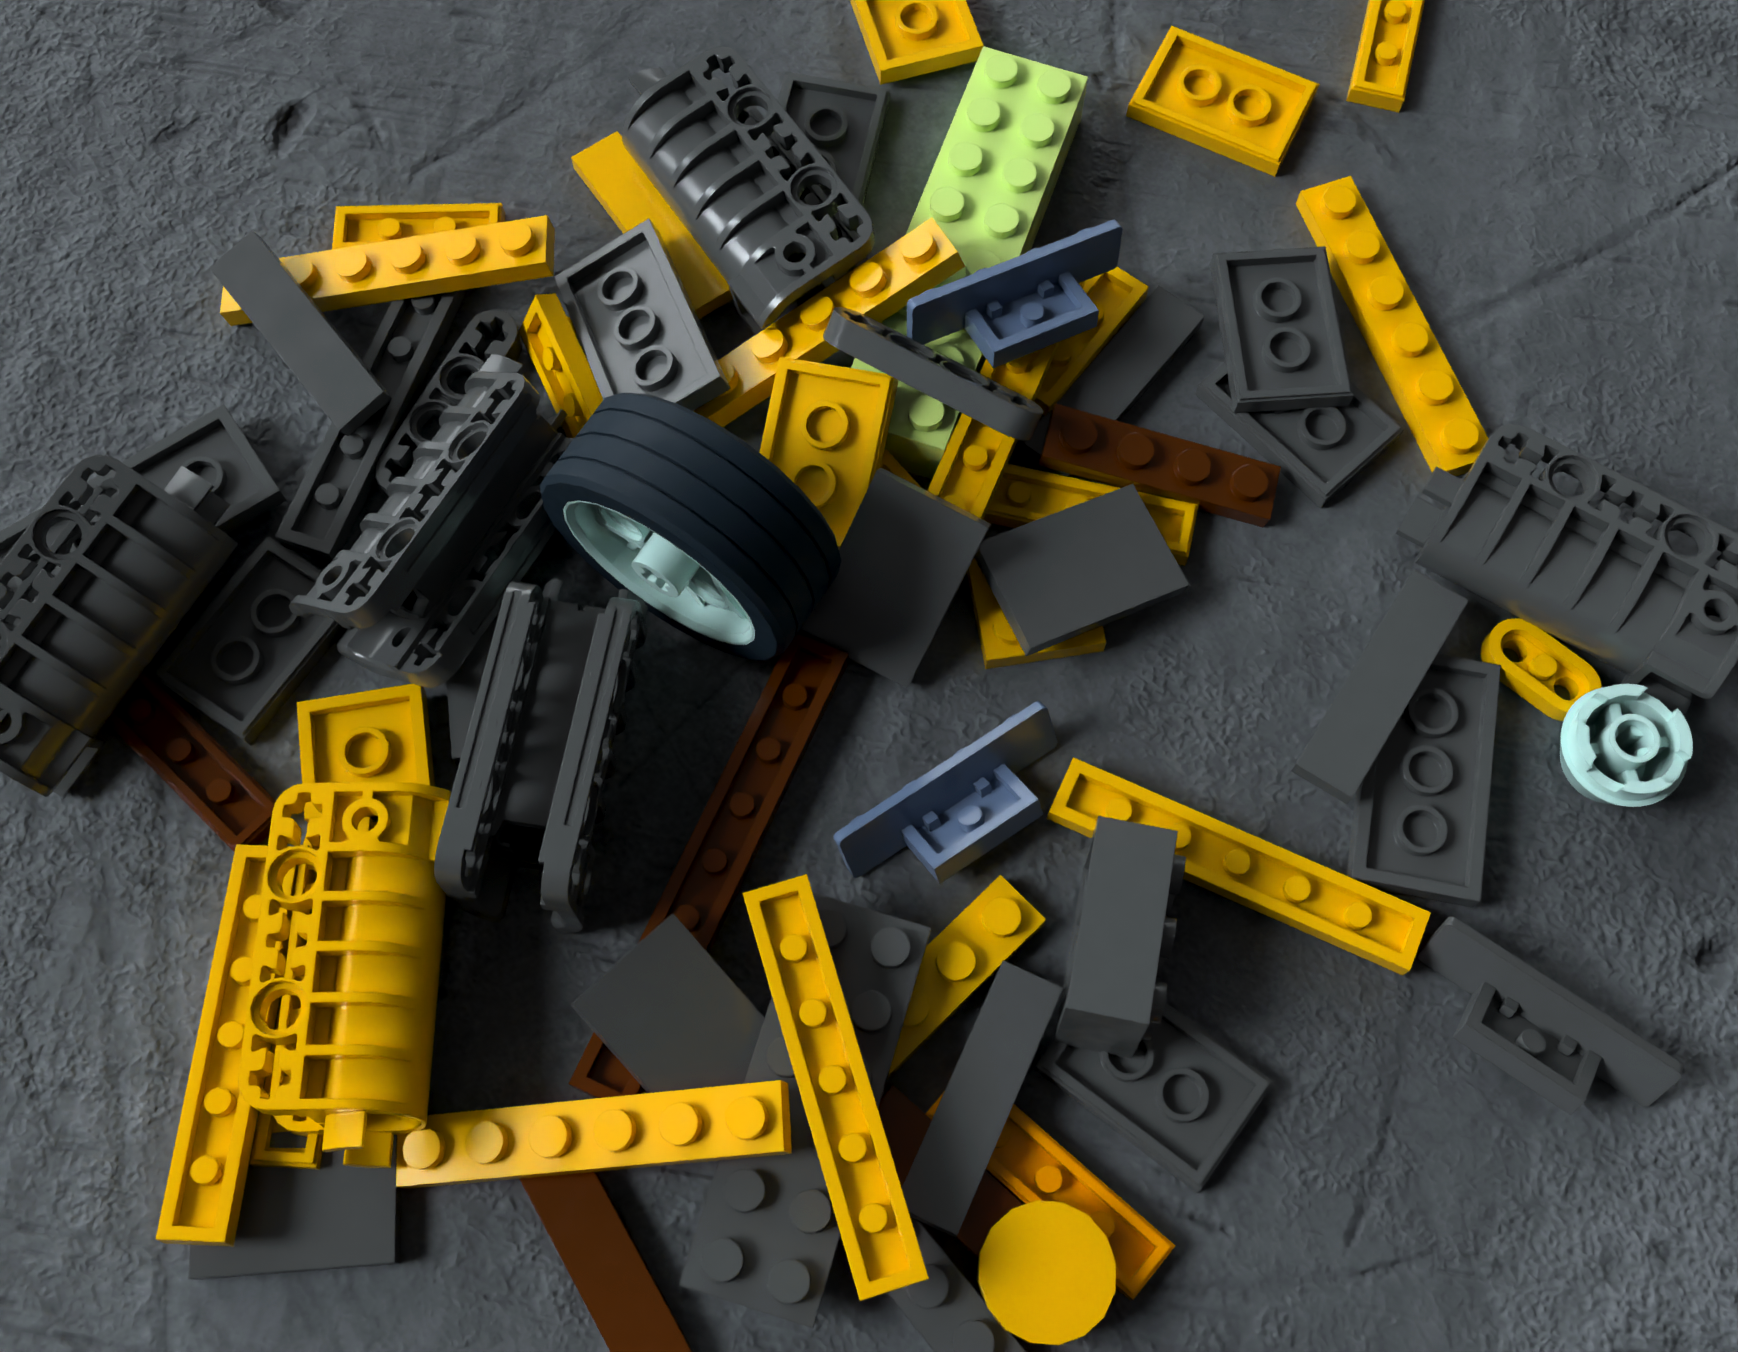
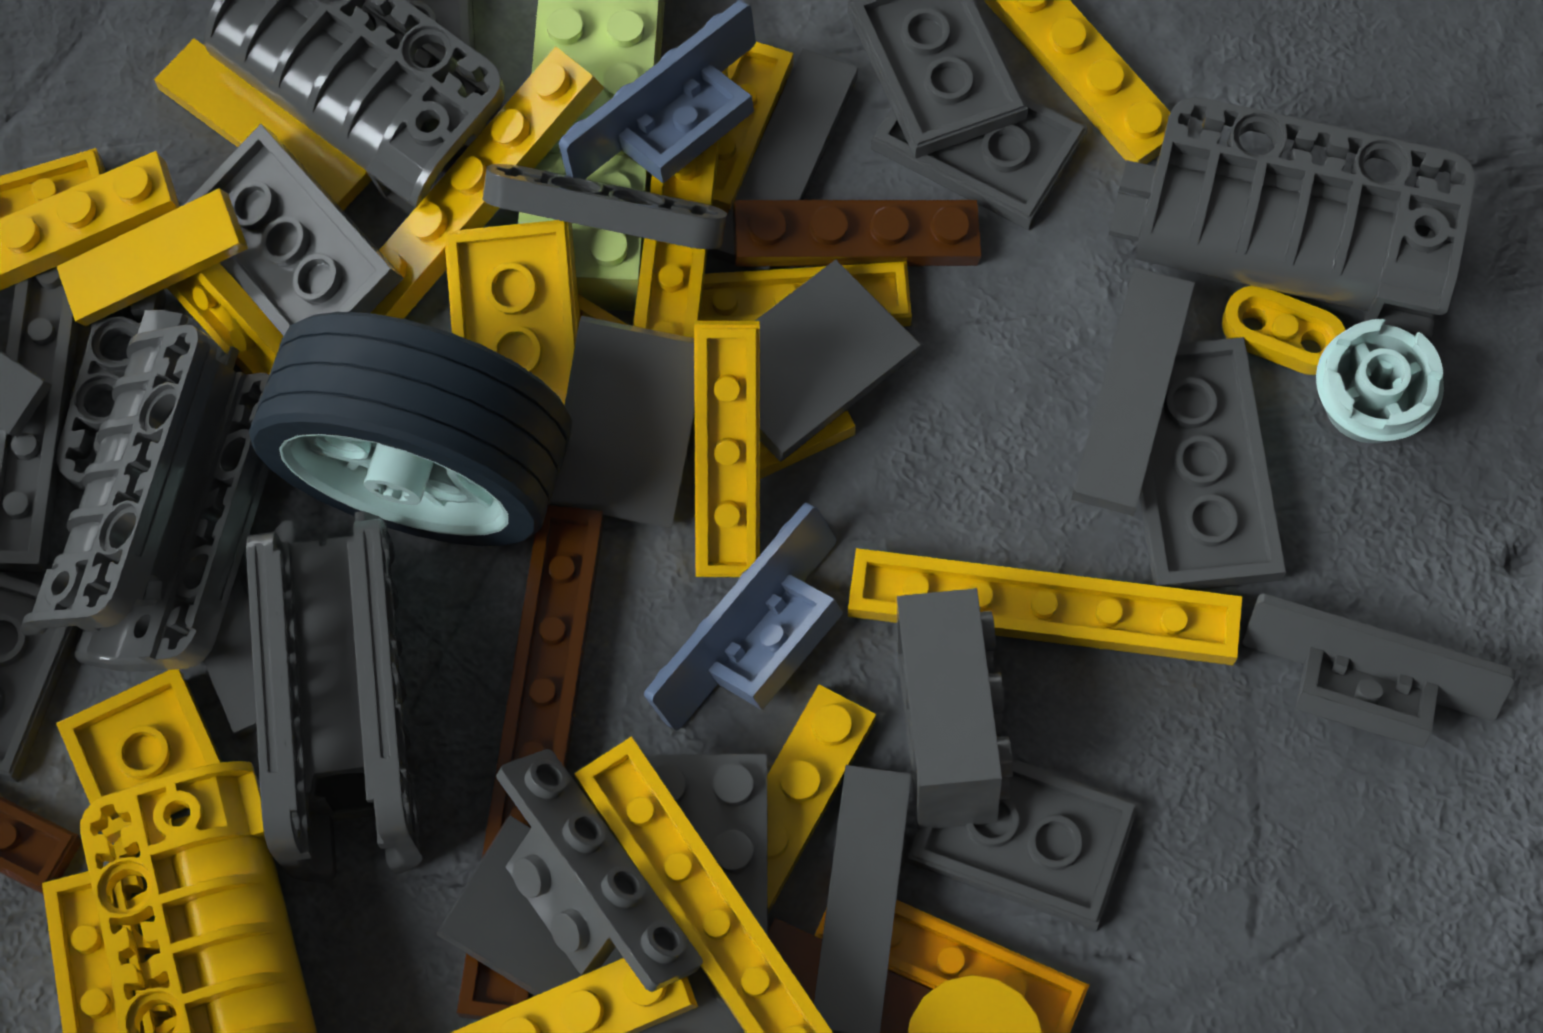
camera: 15 degrees left, 0 degrees up
(515, 308) = (152, 257): none -> yellow tile
(723, 1001) = (586, 881): none -> dark grey bracket
(980, 626) = (727, 446): none -> yellow tile

